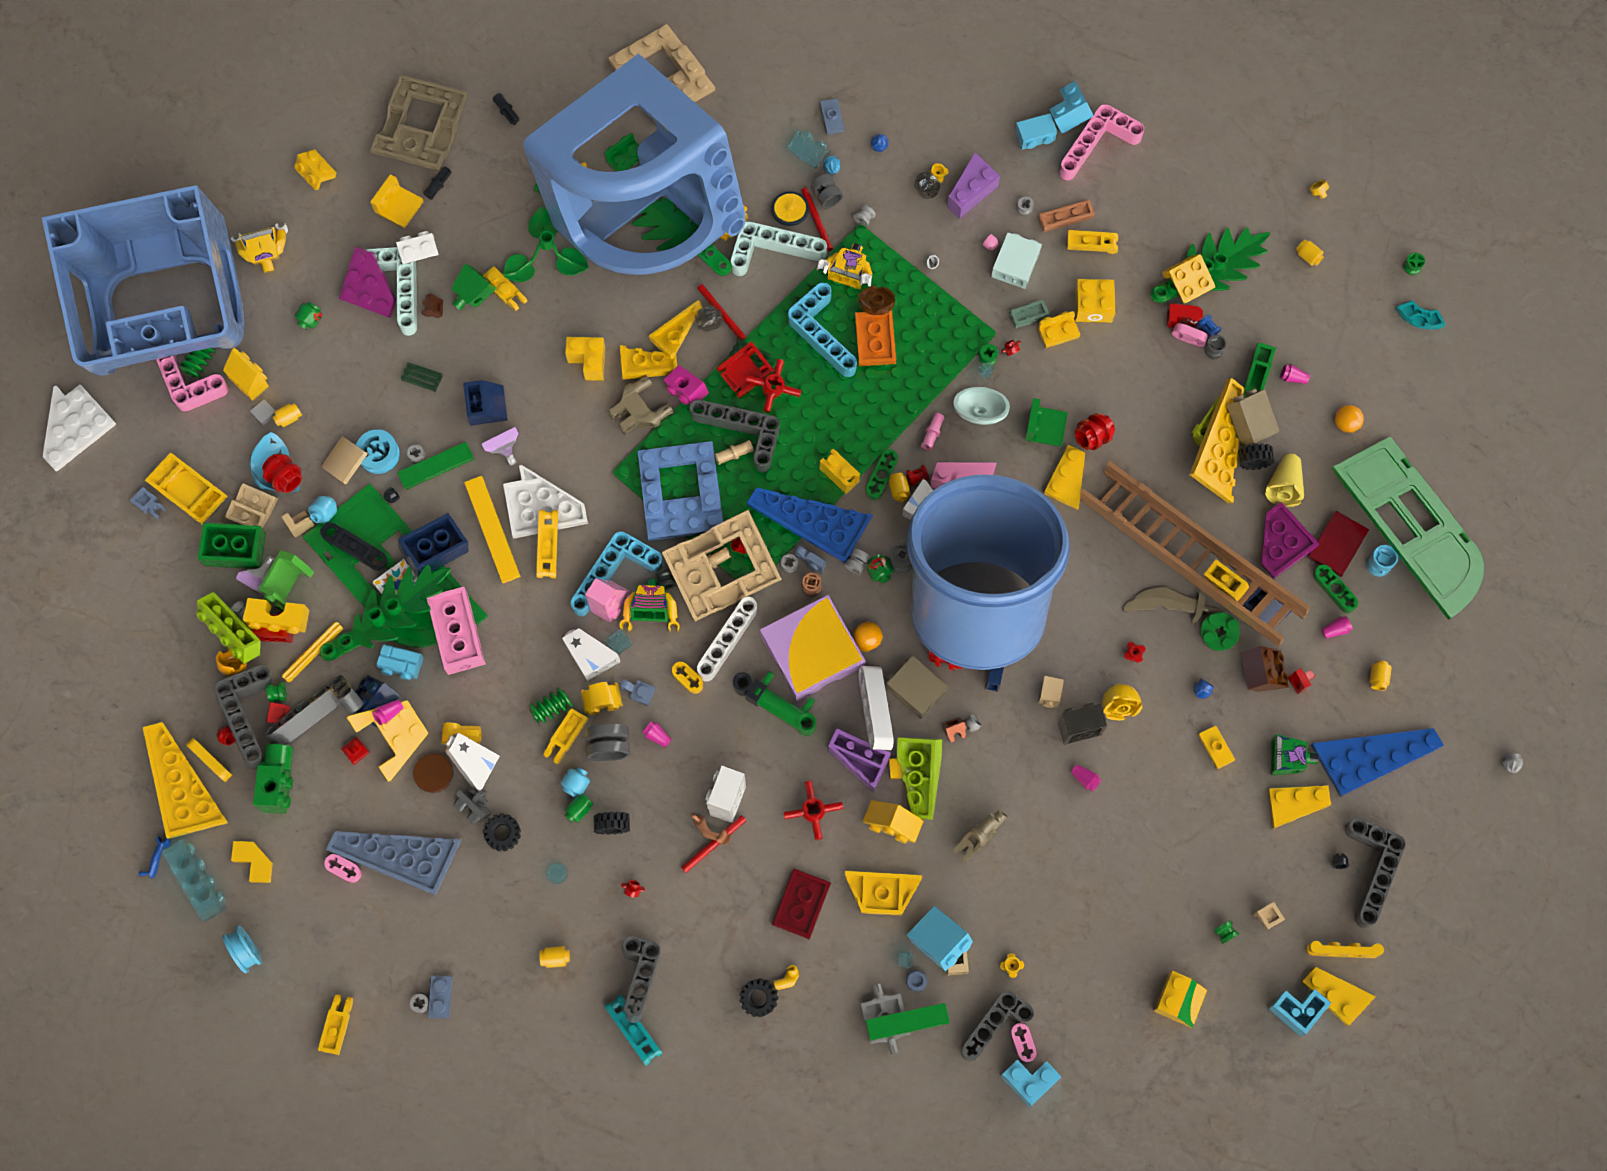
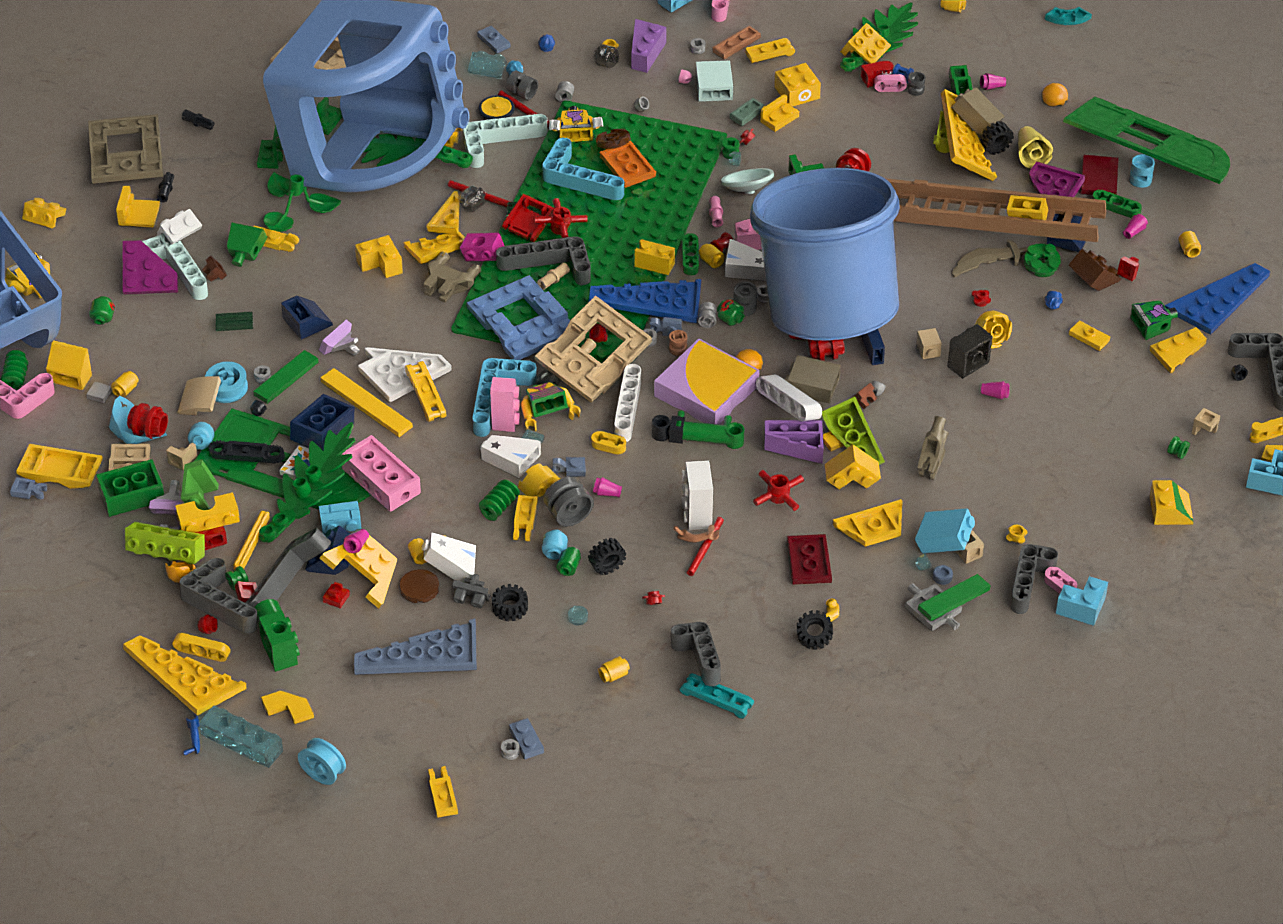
camera: 25 degrees left, 25 degrees down
(341, 872) = (377, 680): bright pink beam -> none

